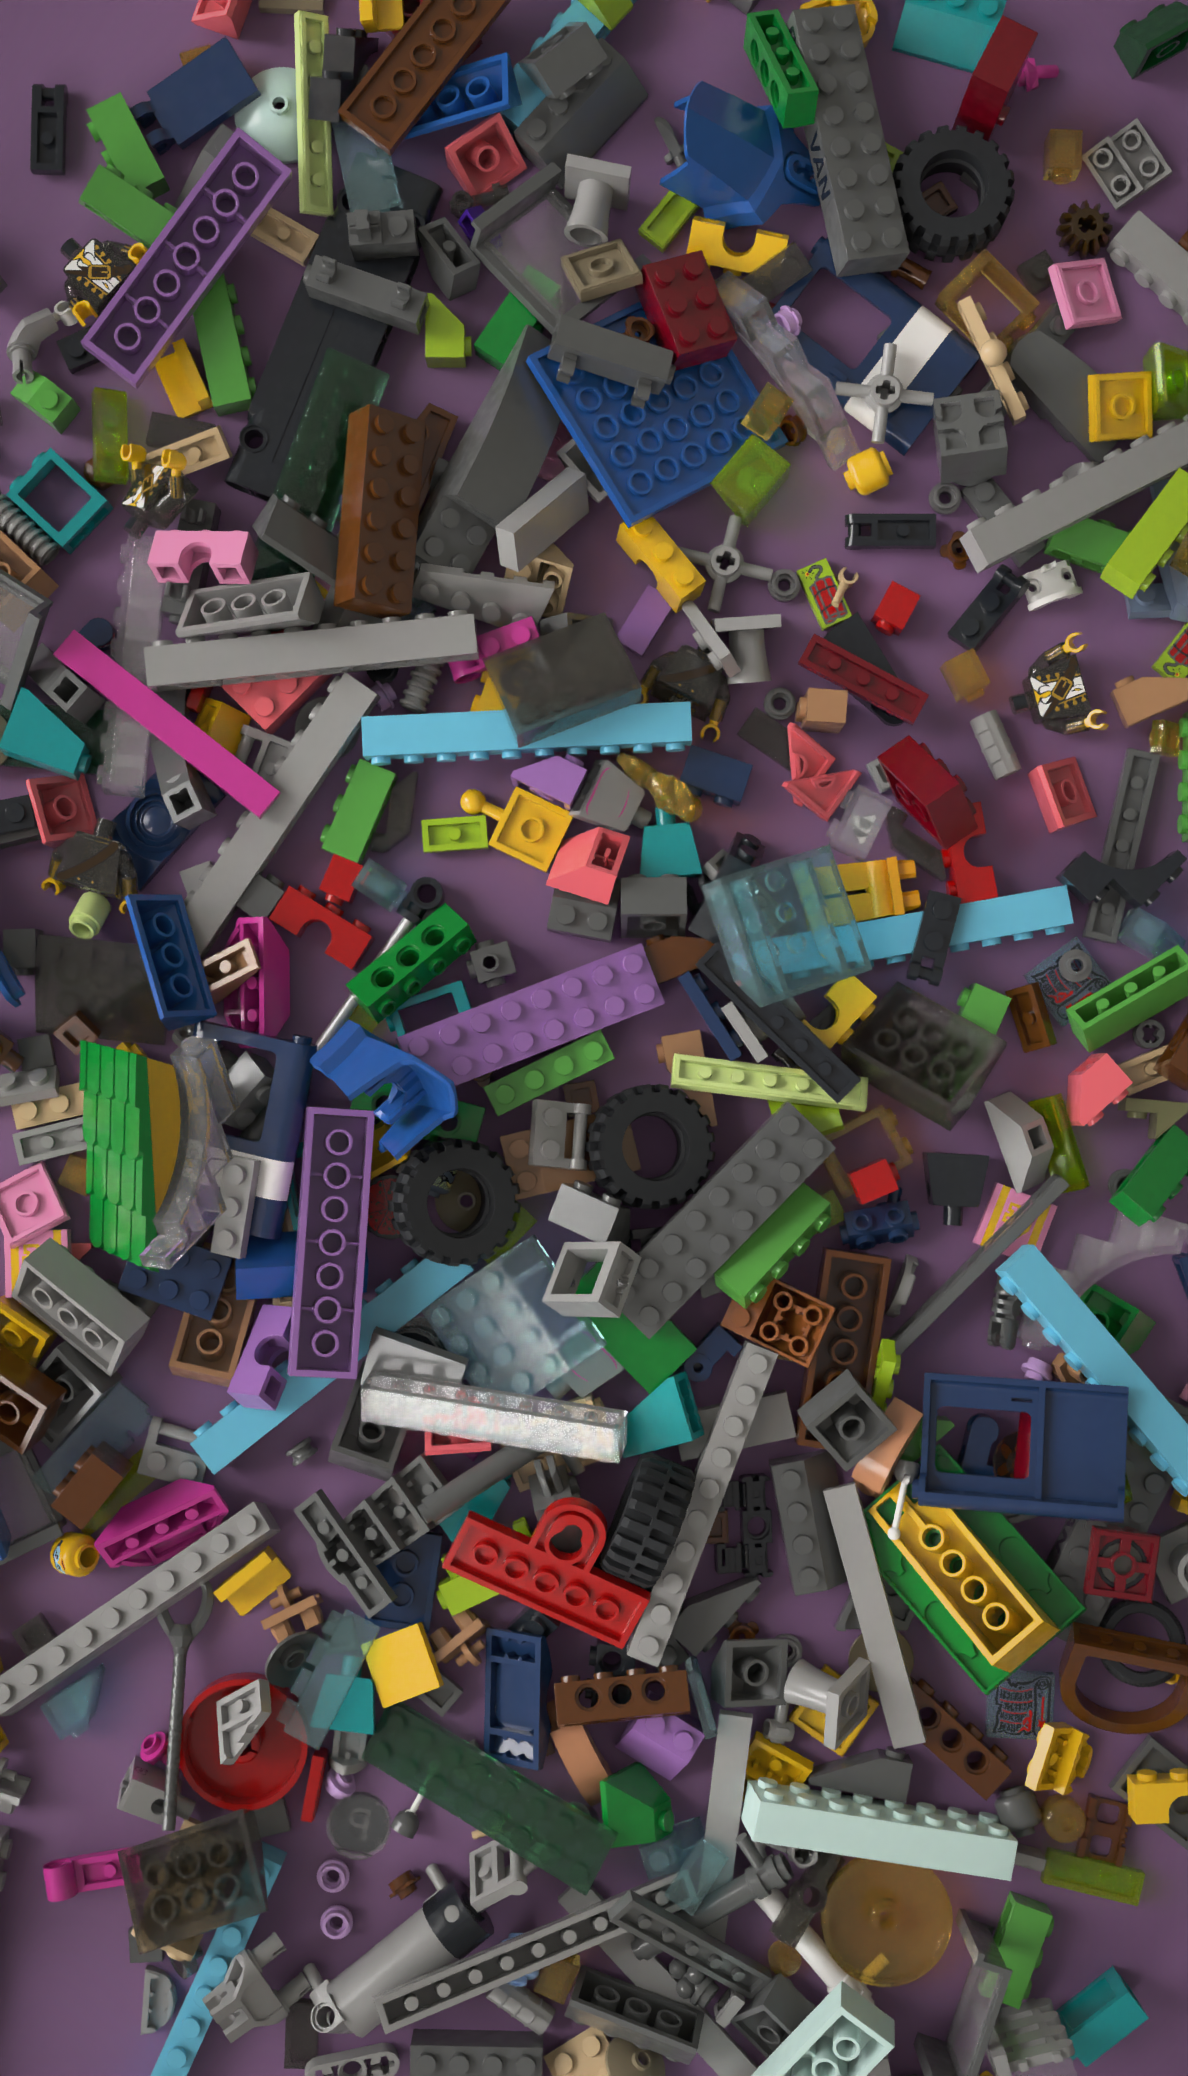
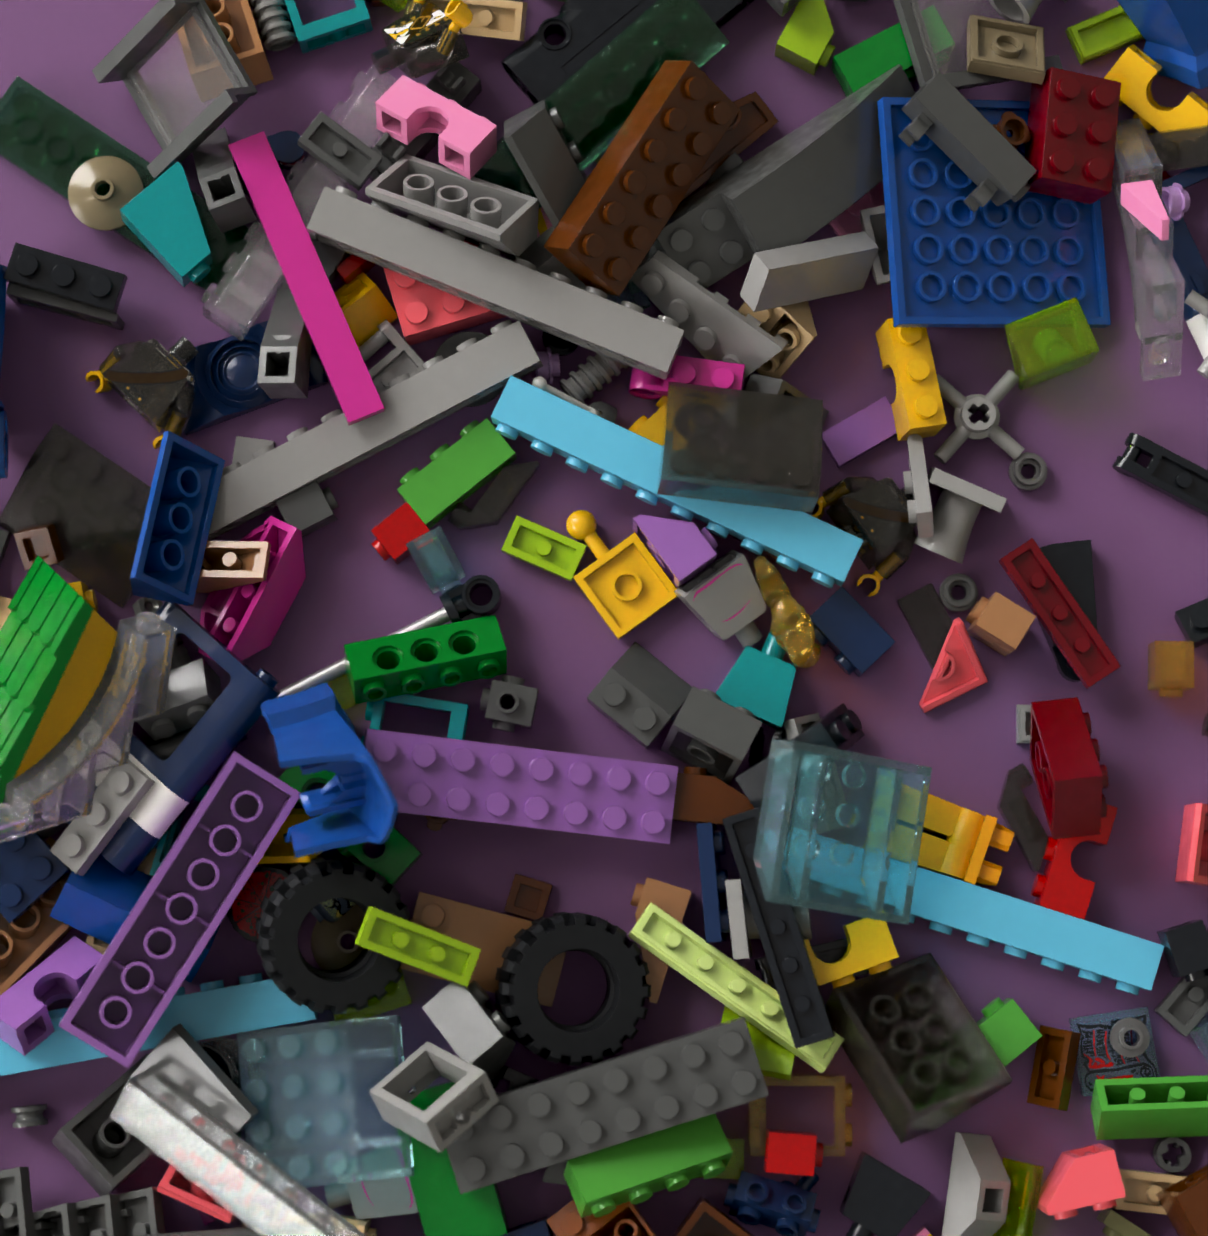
camera: 30 degrees right, 5 degrees down
(20, 949) = (28, 429): dark grey brick -> none
(61, 808) = (150, 306): coral slope -> none
(89, 915) = (118, 431): yellowish green brick -> none
(139, 614) = (339, 150): none -> dark grey plate
(299, 910) = (338, 542): red arch -> none
(441, 706) = (598, 408): none -> white hinge
(521, 1177) = (417, 946): none -> lime plate
(549, 1072) = (508, 852): bright green brick -> none
(549, 1134) = (475, 913): light grey plate -> none
(589, 864) = (668, 654): coral slope -> none
(767, 411) = (1103, 283): clear yellow brick -> none
(770, 335) = (1145, 205): none -> bright pink piece
(788, 425) = (1122, 316): reddish brown plate -> none
(820, 588) = (1065, 503): tile -> none
(823, 792) = (956, 710): coral tile -> none
(843, 585) = (1089, 505): tan hand -> none
(859, 822) = (976, 762): clear brick -> none
(868, 471) = (1178, 399): yellow head -> none
(895, 609) = (1131, 558): red brick -> none
(933, 936) = (992, 925): black plate -> none
(995, 745) = (1165, 756): light grey axle -> none

